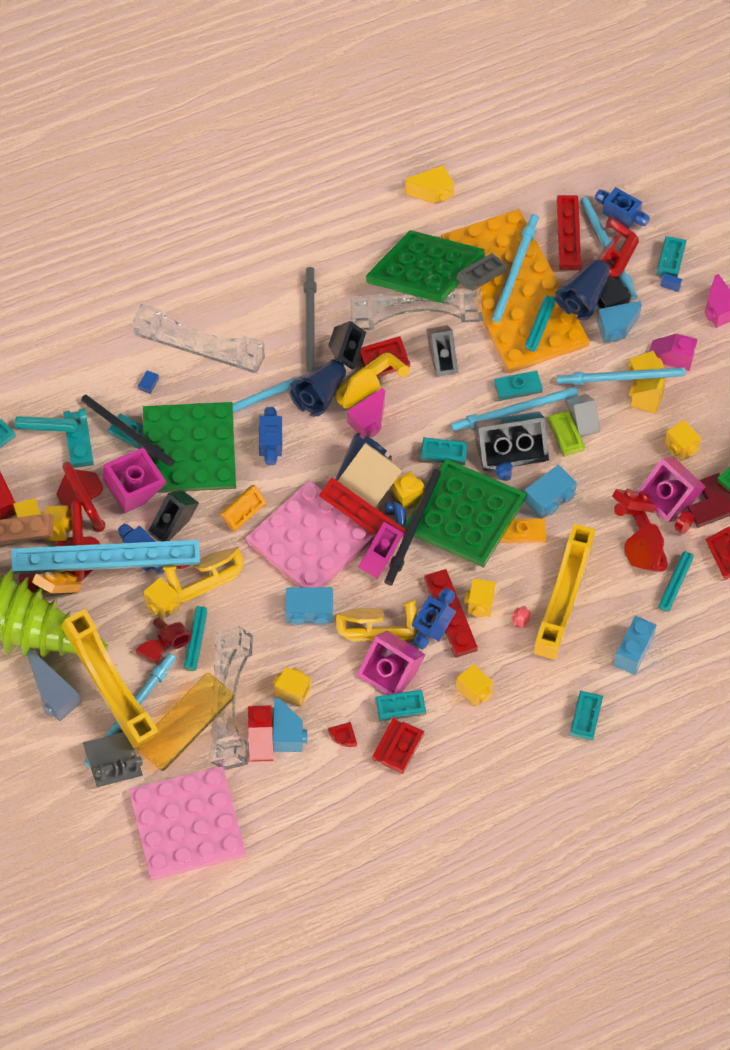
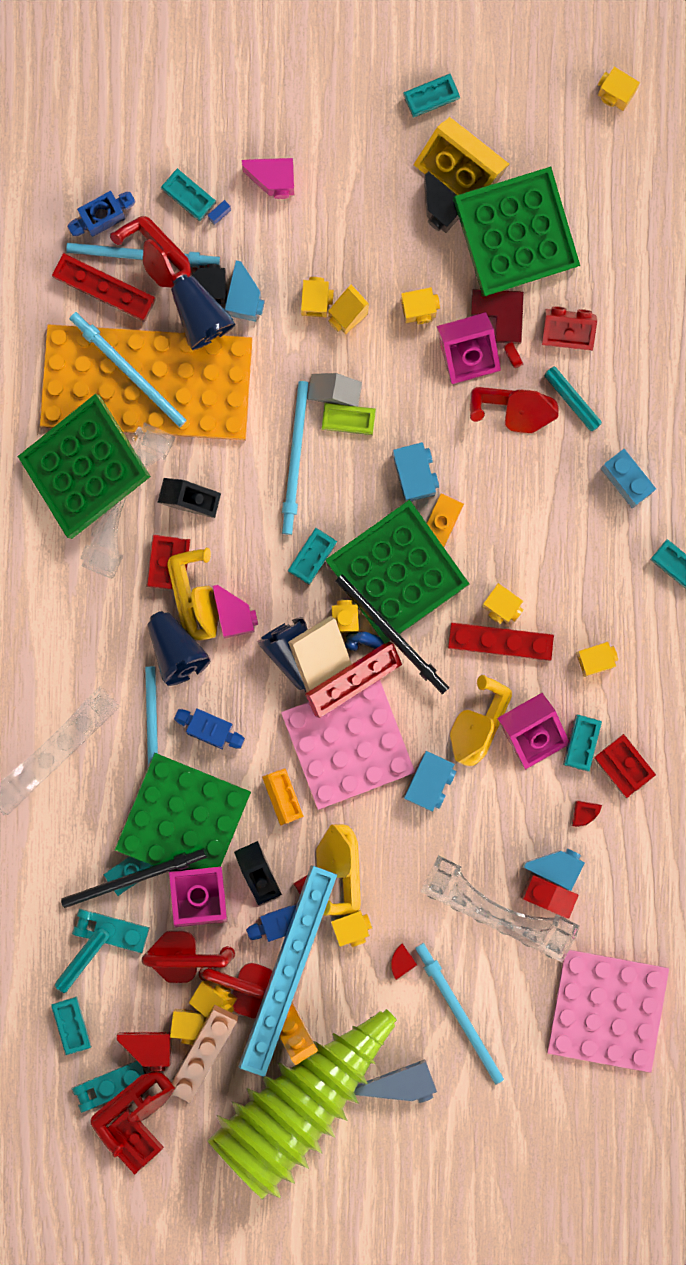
camera: 65 degrees left, 25 degrees up
(91, 651) = (436, 1029): yellow arch -> none
(112, 759) = (509, 1055): dark grey hinge -> none
(148, 382) = (75, 825): blue piece -> none
(174, 634) = (396, 935): dark red piece -> none
(186, 721) = (504, 966): clear yellow piece -> none
(194, 645) = (409, 912): teal axle -> none
(292, 686) = (511, 840): yellow brick -> none
(310, 289) = (40, 600): dark grey bar -> none
(347, 343) = (139, 598): black slope -> none
(380, 550) = (403, 680): dark pink slope -> none
(441, 622) = (503, 649): blue piece -> none
(481, 272) = (125, 411): dark grey plate -> none
(504, 471) = (371, 510): blue arm -> none
(511, 439) = (334, 480): black slope -> none
(518, 385) = (268, 439): teal plate -> none
(521, 616) = (540, 574): coral plate -> none
(540, 323) = (198, 366): teal axle -> none
(565, 592) = (541, 522): yellow arch -> none
(580, 378) = (295, 371): medium azure bar -> none
(634, 500) = (471, 394): red plate -> none
(675, 350) = (307, 257): dark pink slope -> none

